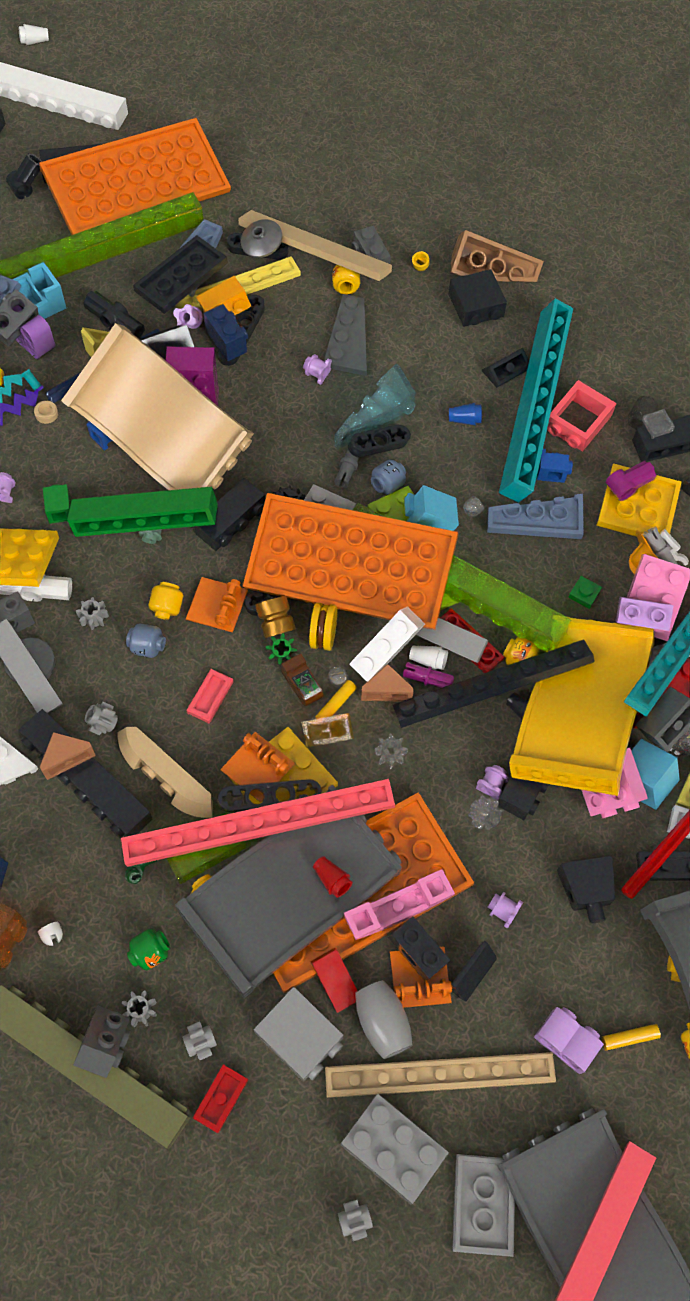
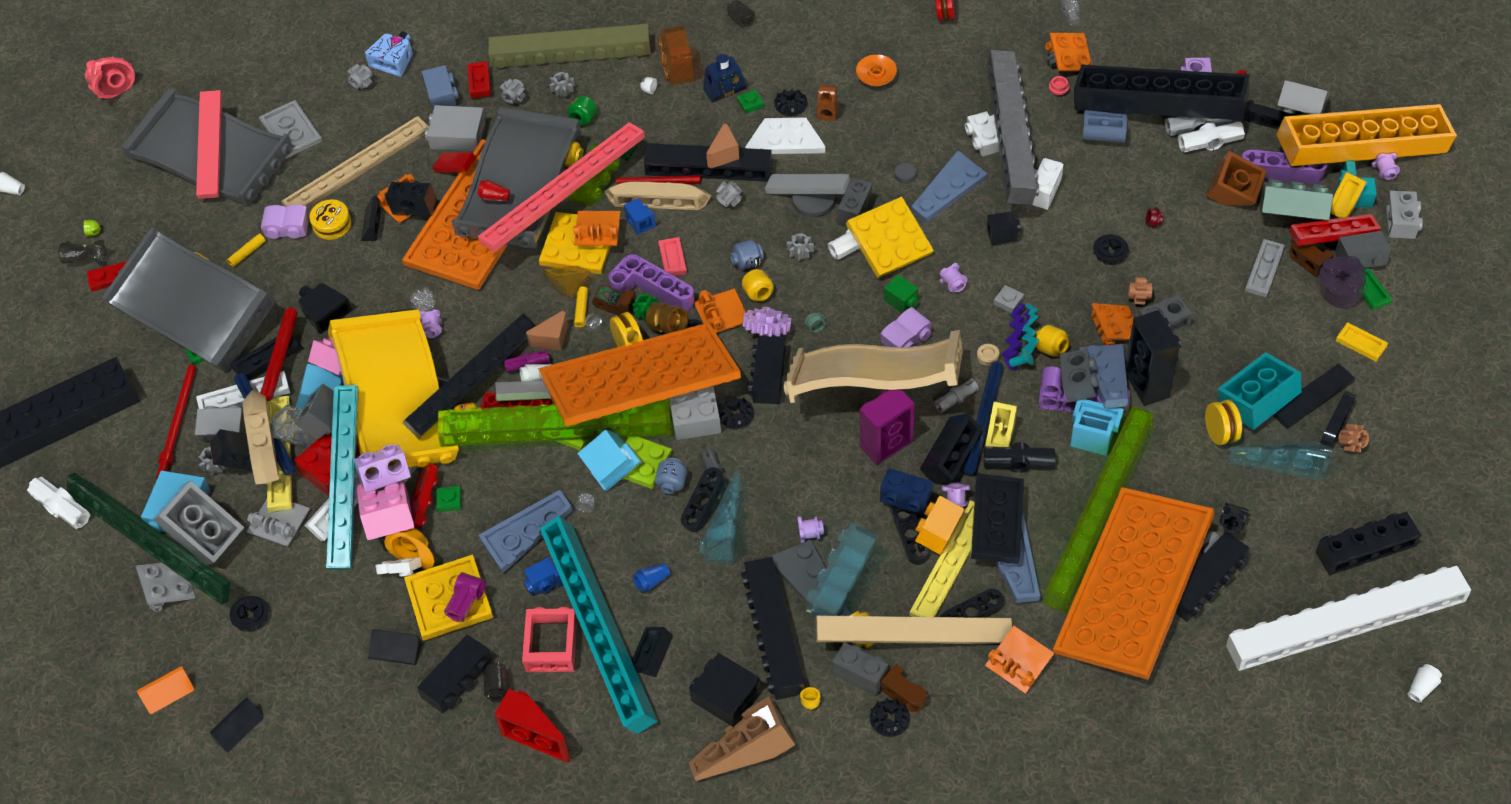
camera: 150 degrees right, 10 degrees down
(89, 468) = (906, 330): none -> lavender brick
(102, 1042) = (563, 48): dark grey brick -> none
(143, 511) = (826, 317): green brick -> none
(145, 796) = (671, 179): none -> red bar
(200, 543) = (766, 322): none -> lavender gear
(204, 759) = (639, 216): none -> blue brick
(252, 668) = (639, 272): none -> medium lavender beam
(259, 194) = (1019, 659): none -> orange hinge
(261, 238) = (967, 606): flat silver dish -> none
(268, 791) = (575, 215): black beam -> none
(274, 1118) = (439, 87): none -> sand blue brick
(290, 1235) = (390, 53): none -> light blue torso
(327, 306) = (842, 572): none -> clear light blue wedge
(351, 221) = (900, 688): none -> reddish brown leg
(383, 1019) = (408, 159): light grey piece -> none
(385, 221) = (888, 727): none -> black gear
(387, 643) = (566, 340): white brick -> none
(394, 1149) = (359, 114): light grey brick -> none
(397, 749) = (516, 297): clear gear -> none
(399, 906) = (443, 211): bright pink slope -> none
(406, 318) = (773, 627): none -> black brick
(504, 908) = (371, 260): lavender brick -> none
(516, 1005) = (330, 219): none -> yellow head
(606, 607) = (422, 494): none -> red tile
(641, 354) = (526, 723): none -> red slope
(658, 423) = (470, 661): clear tile -> none
(658, 545) = (402, 551): light grey pin -> none

